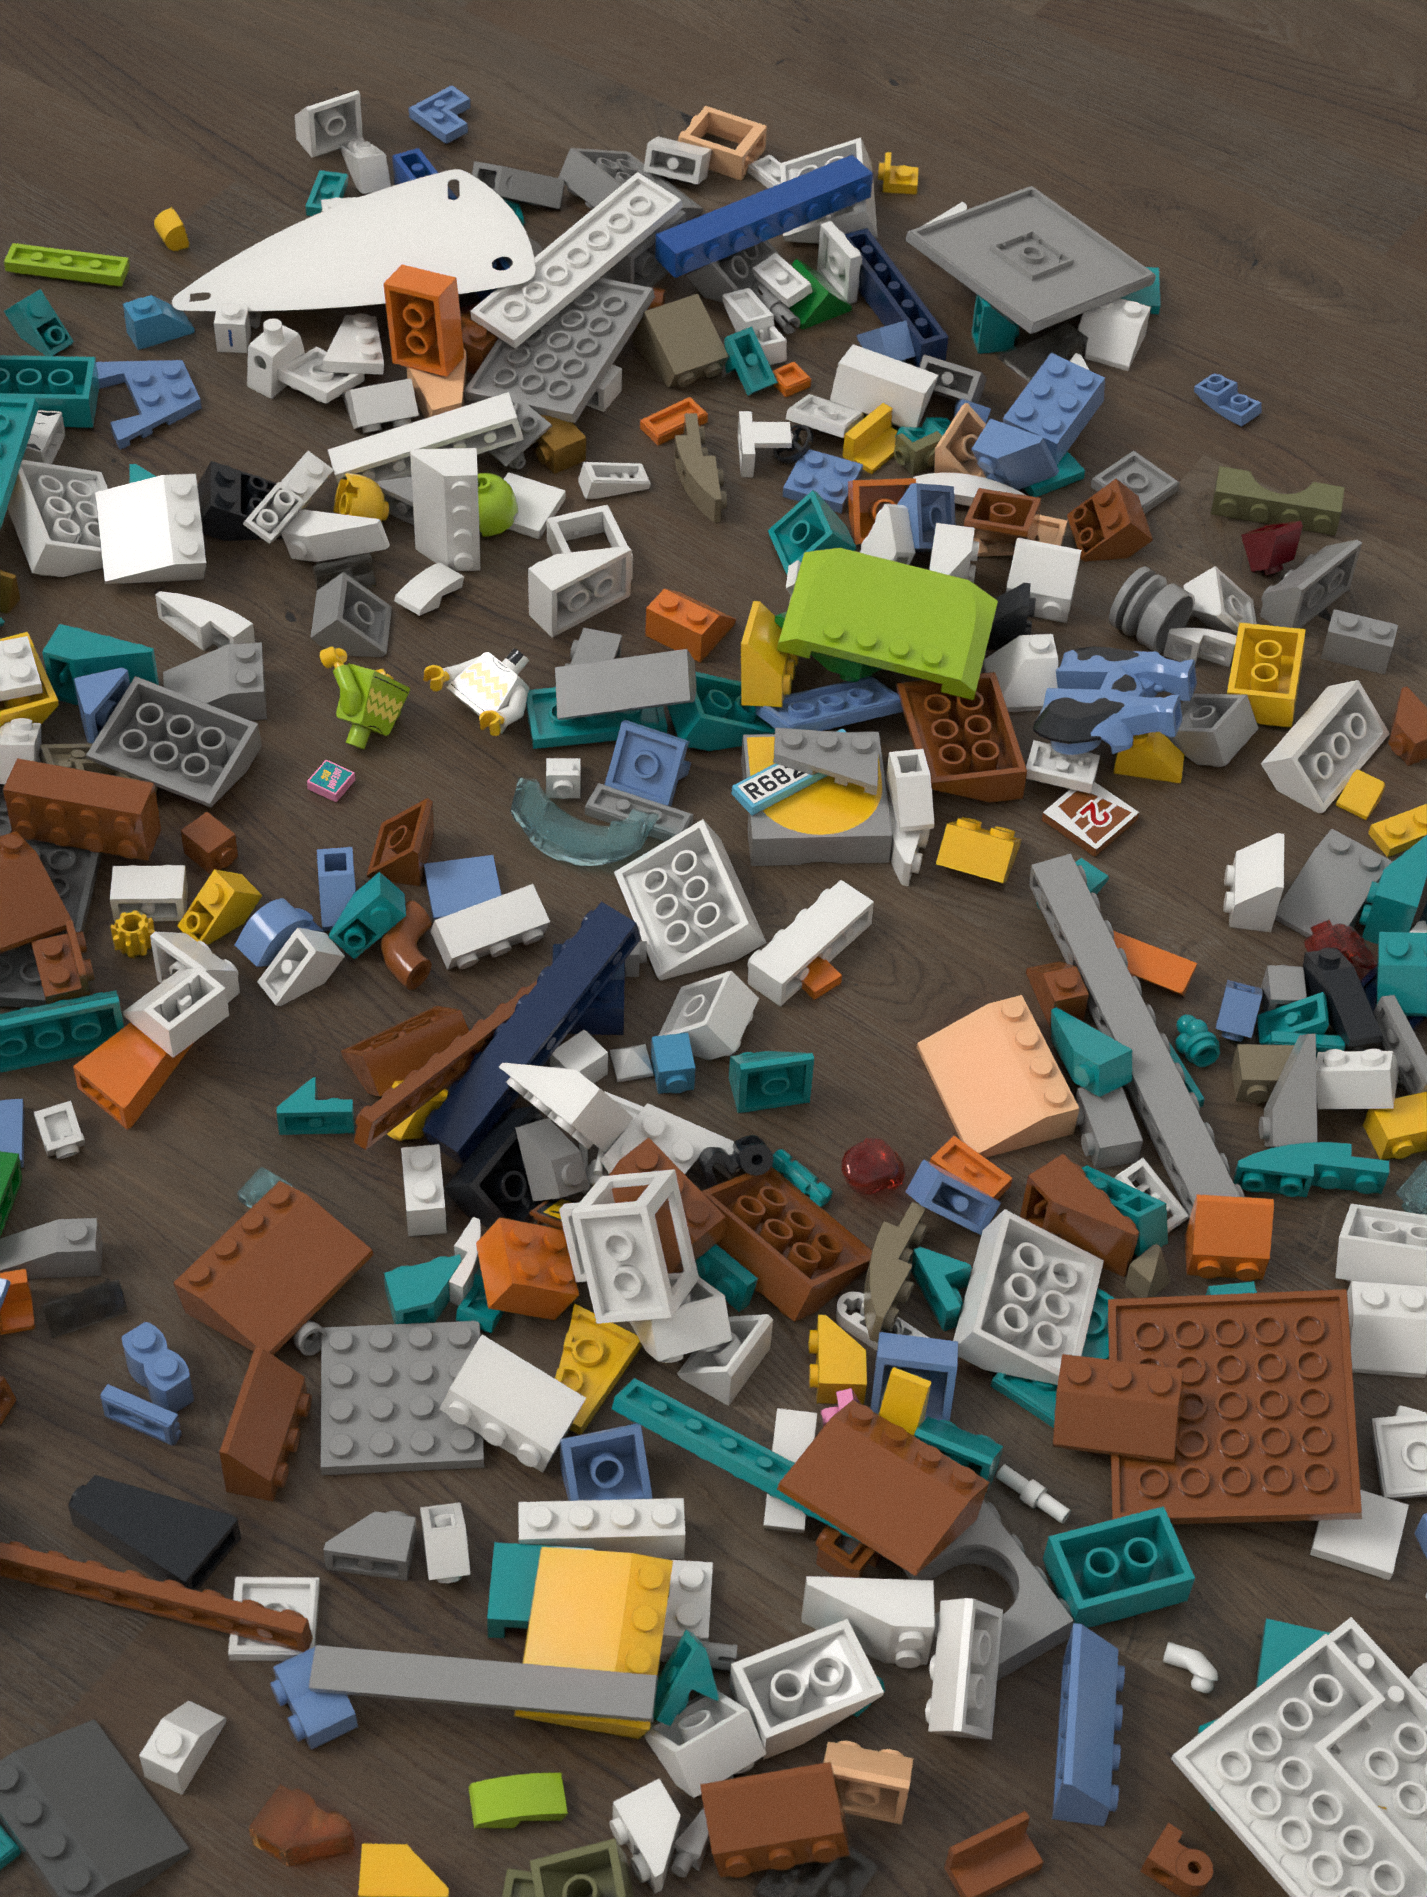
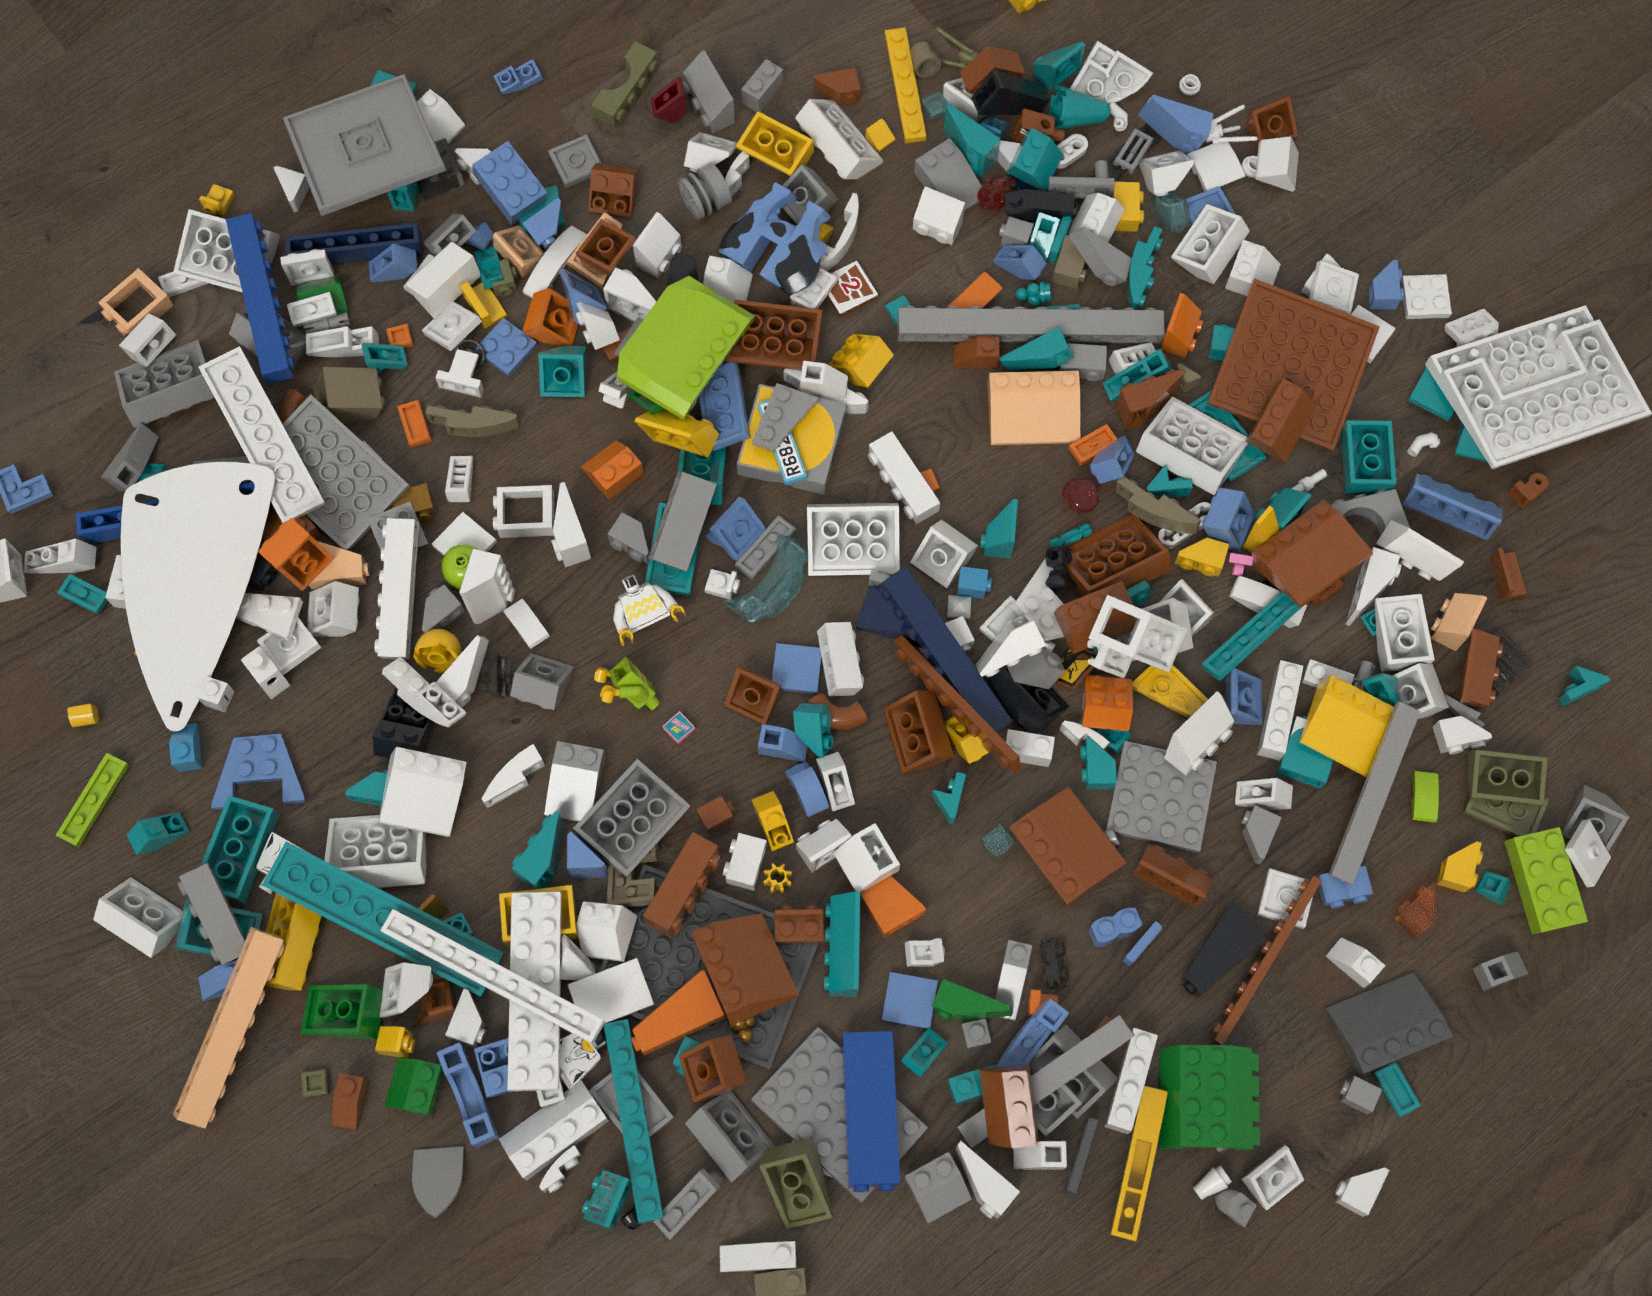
camera: 70 degrees left, 20 degrees up
(1167, 790) = (846, 239): none -> white slope

